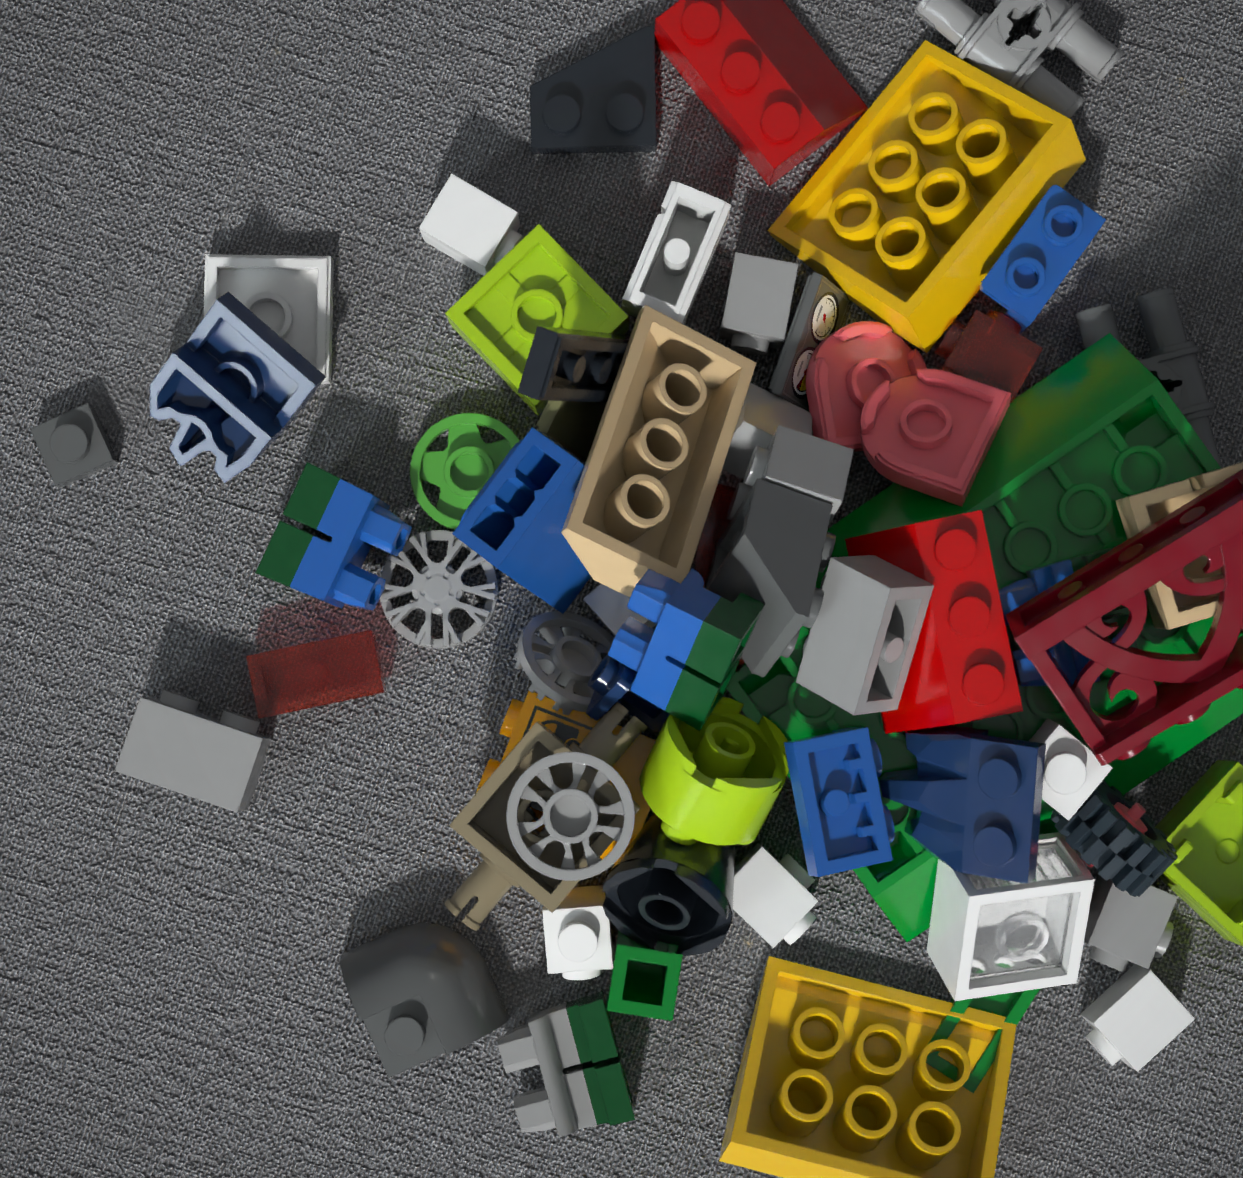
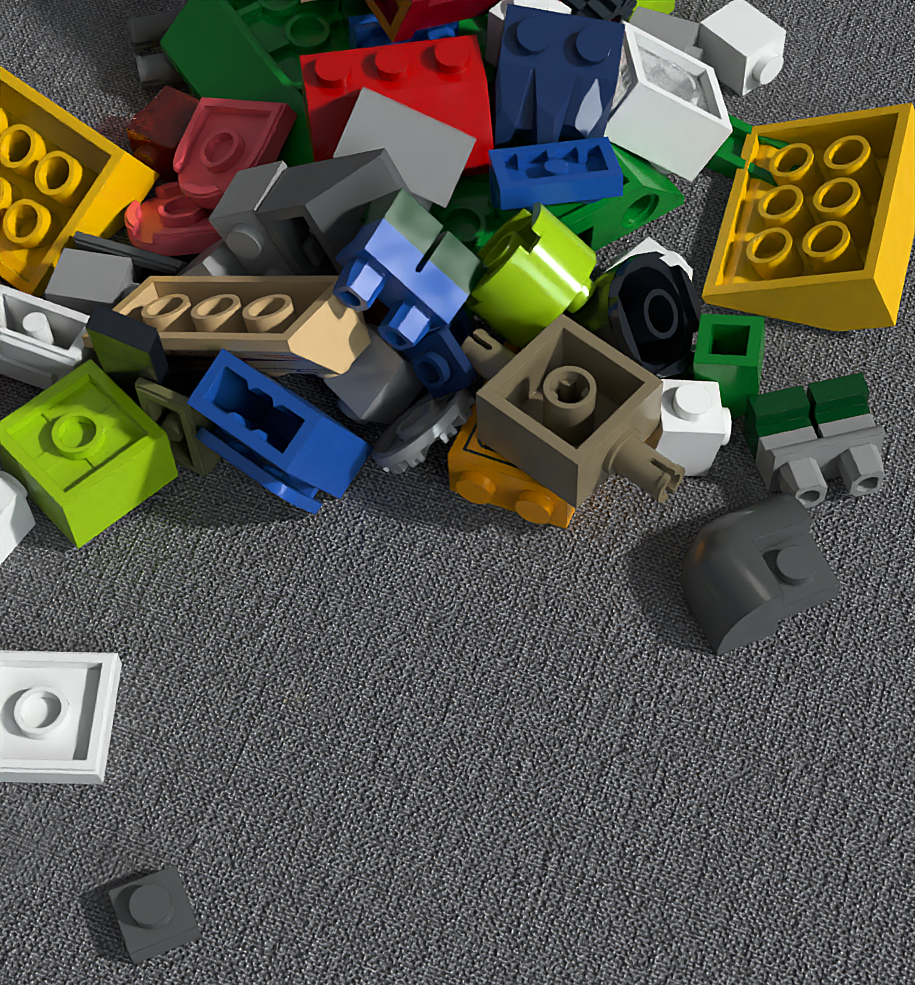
camera: 85 degrees left, 30 degrees down
(194, 752) = (502, 777): light grey brick -> none
(231, 388) = (113, 728): dark blue plate -> none
(316, 674) = (424, 664): clear red plate -> none
(332, 568) = (281, 644): blue hips -> none
(438, 591) = (343, 560): light grey wheel -> none
(461, 467) = (227, 533): bright green wheel -> none
(570, 816) = (568, 357): light grey wheel -> none
(1041, 255) = (89, 86): blue bracket -> none

